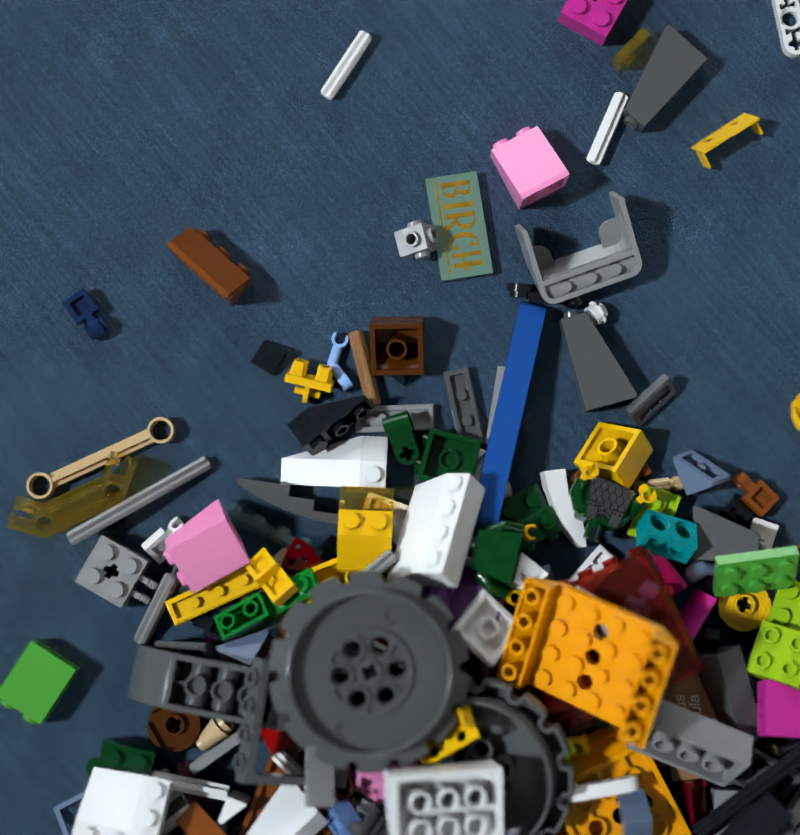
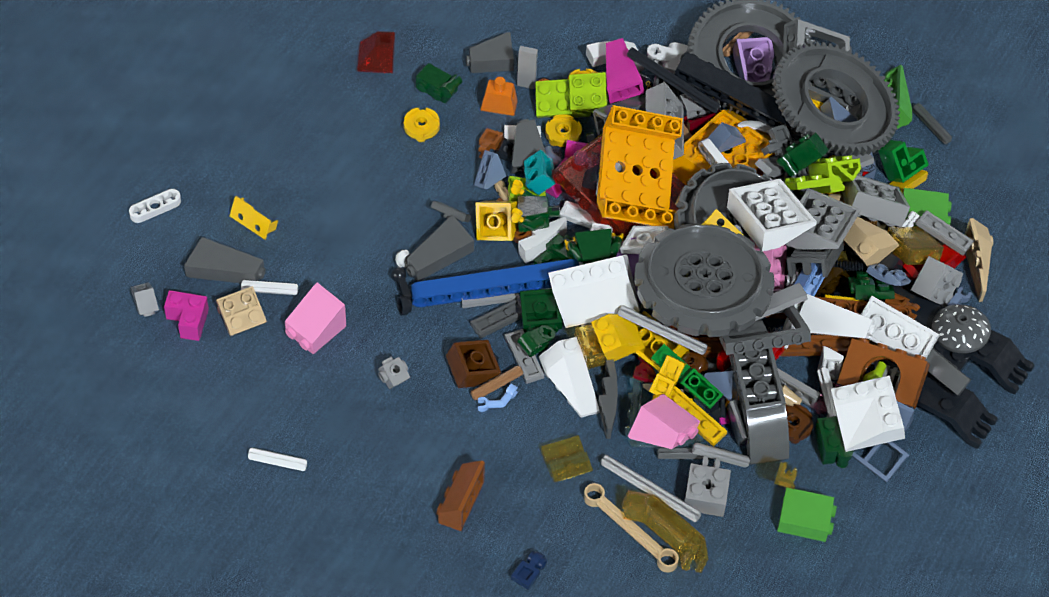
camera: 115 degrees left, 30 degrees down
(87, 674) = (785, 479): none -> clear yellow hinge
(156, 542) = (673, 467): white plate -> none
(224, 415) = (566, 459): none -> clear yellow slope
(268, 357) = (512, 444): black slope -> none
(299, 376) = (522, 409): yellow hips -> none
(324, 422) = (549, 392): black slope -> none
(460, 226) = (366, 357): sand green tile -> none
(577, 79) = (241, 311): none -> tan plate
(587, 269) = (371, 264): light grey windscreen -> none
(612, 592) = (591, 178): none -> black slope
(627, 55) = (210, 288): clear yellow plate -> none
(755, 571) = (542, 120): bright green plate -> none

